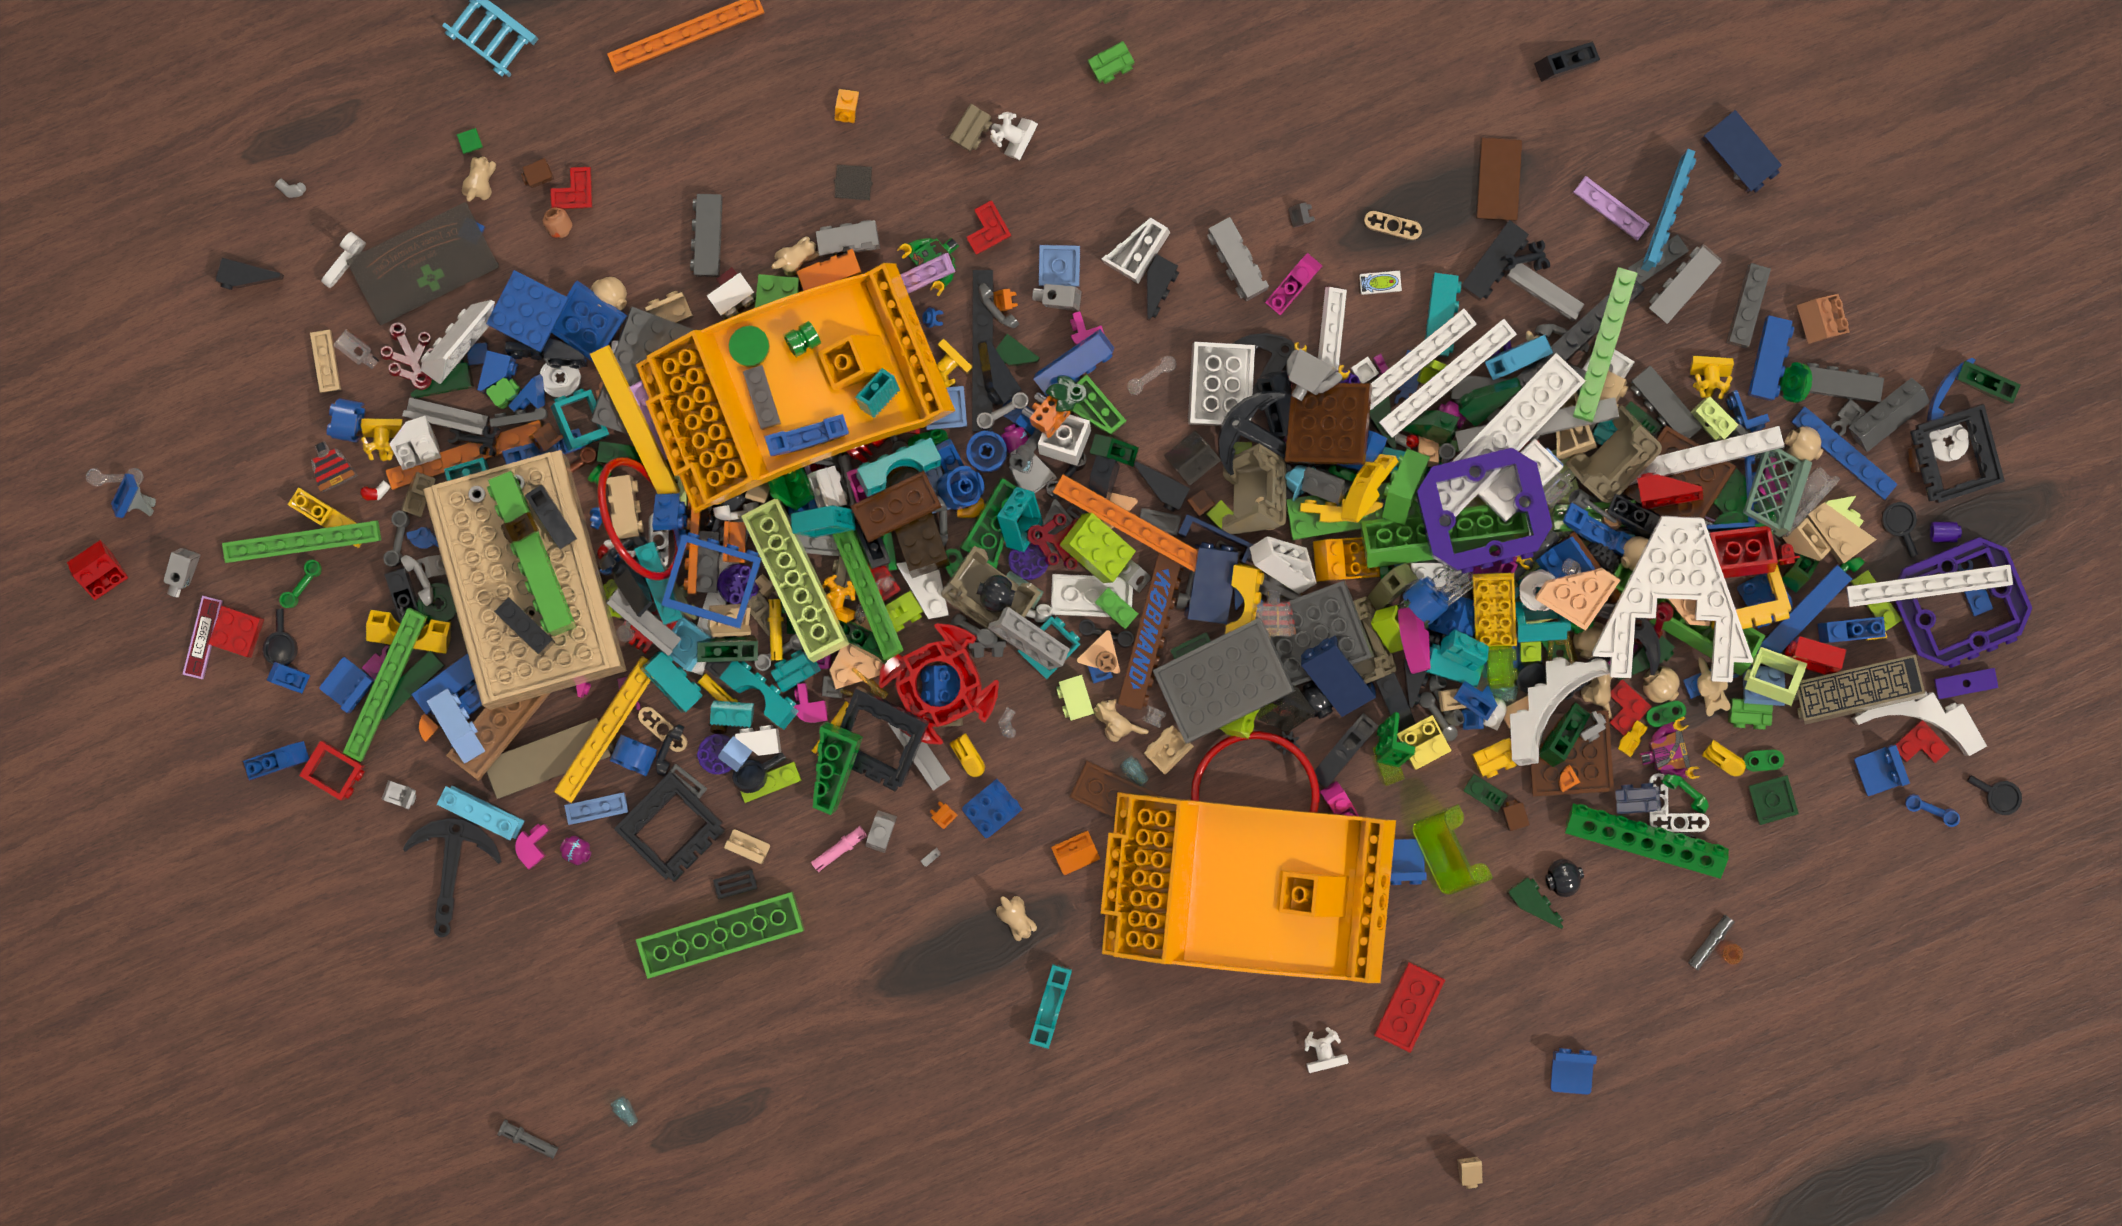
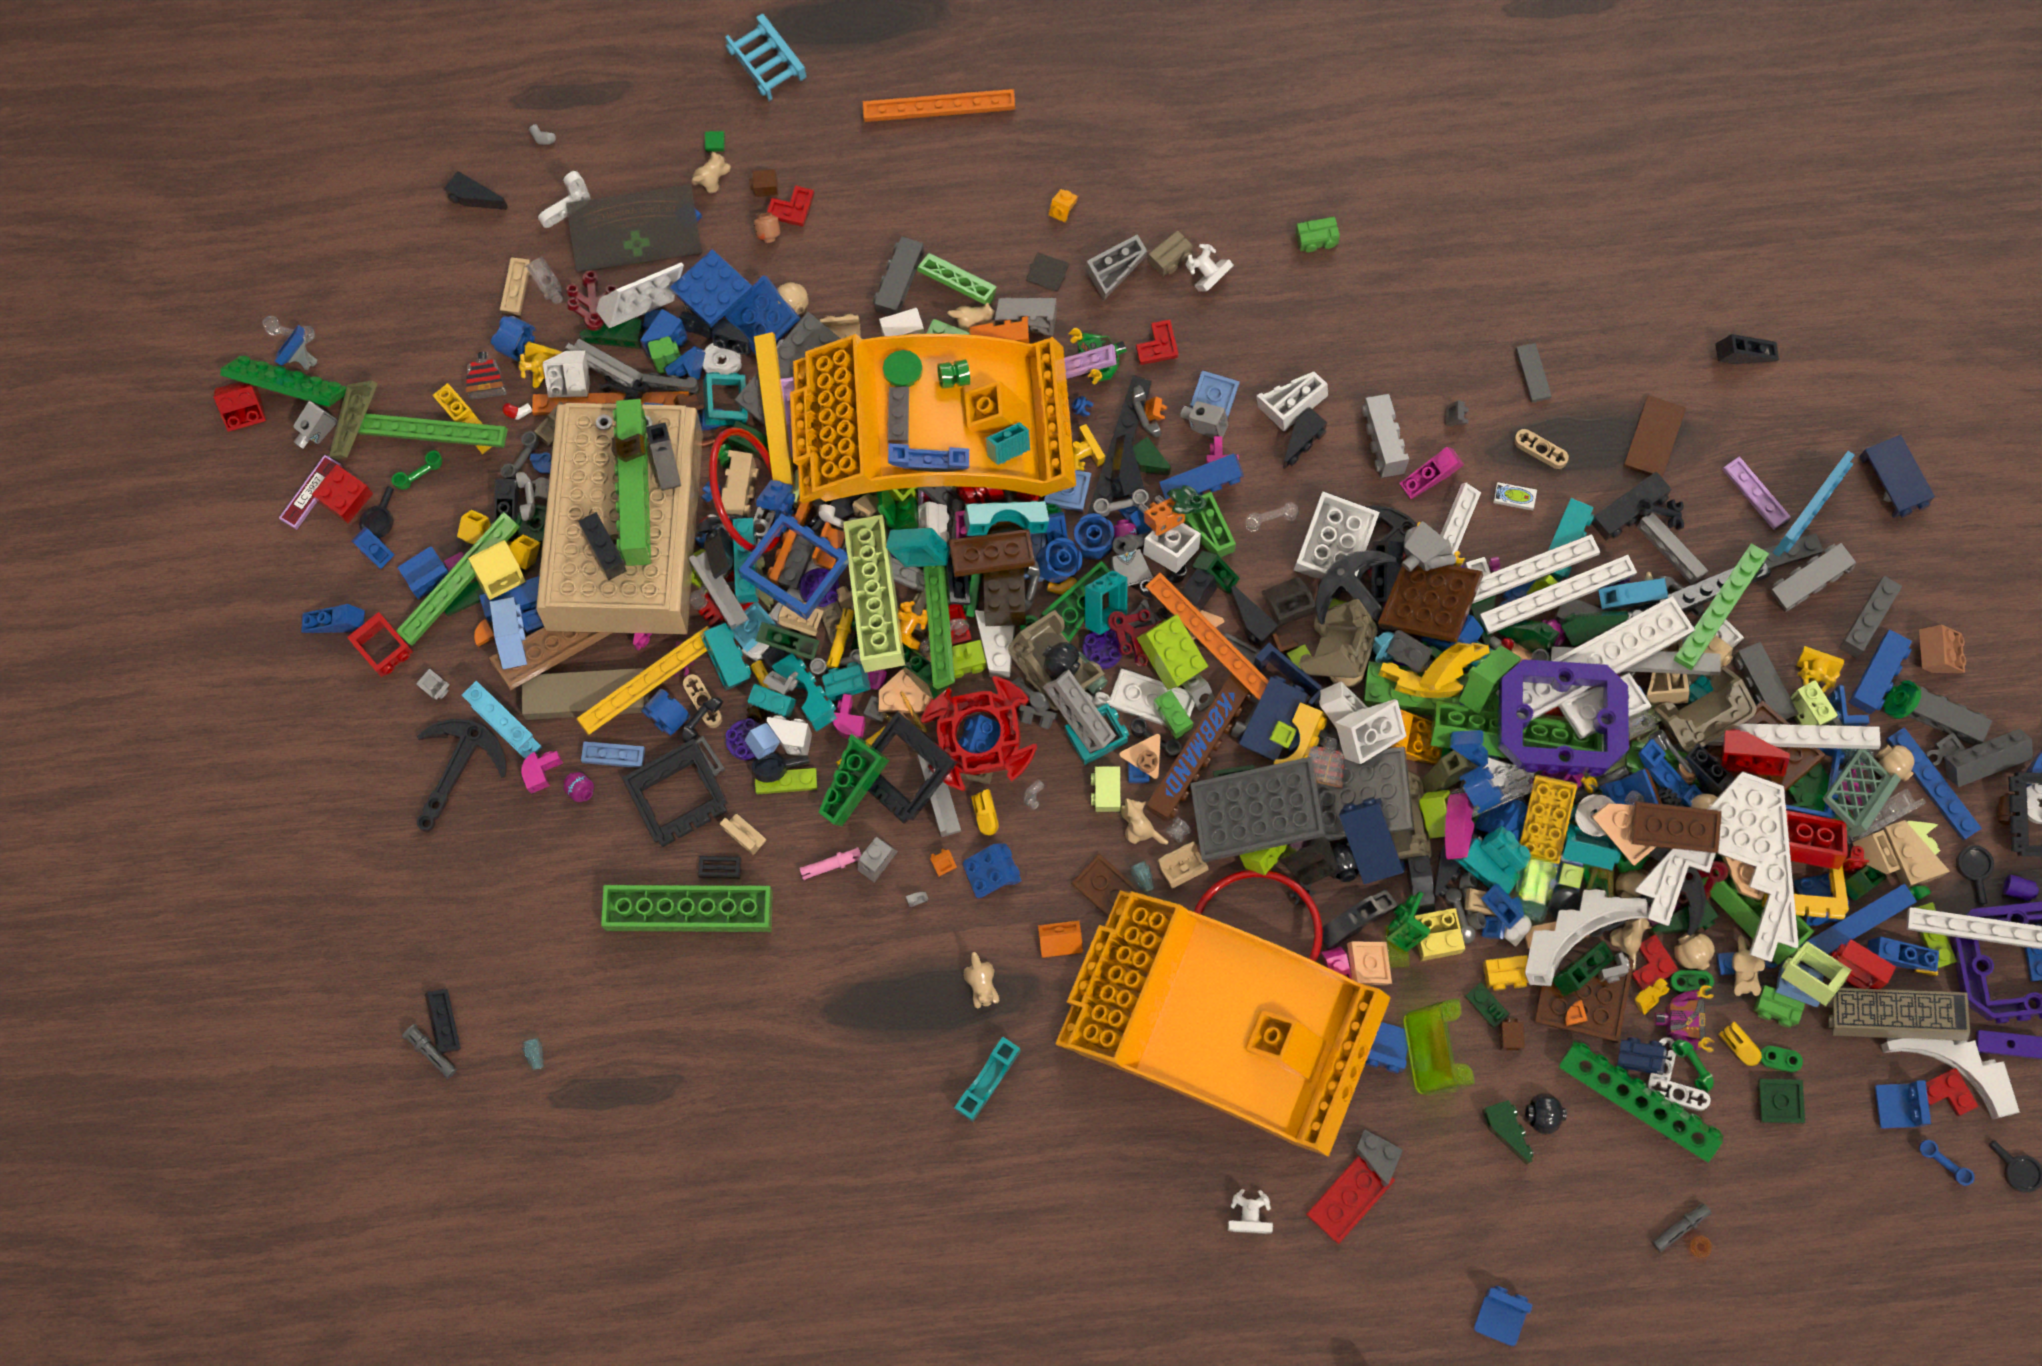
camera: 25 degrees right, 15 degrees down
(133, 534) = (283, 381): none -> green plate
(214, 545) = (351, 416): none -> olive wing
(421, 667) = (496, 570): none -> light yellow slope
(529, 1108) = (442, 1021): none -> black plate
(734, 695) = (779, 683): none -> light grey bracket
(768, 219) = (957, 279): none -> bright green fence
(920, 158) = (1115, 264): none -> light grey wedge
(1226, 598) = (1283, 734): none -> lime tile
(1308, 575) = (1370, 731): none -> white slope
(1364, 146) = (1533, 372): none -> dark grey tile
(1367, 789) = (1369, 963): none -> light nougat plate
(1405, 562) = (1470, 746): none -> blue slope
(1425, 963) = (1378, 1155): none -> dark grey wing
(1614, 587) = (1676, 827): none -> reddish brown tile

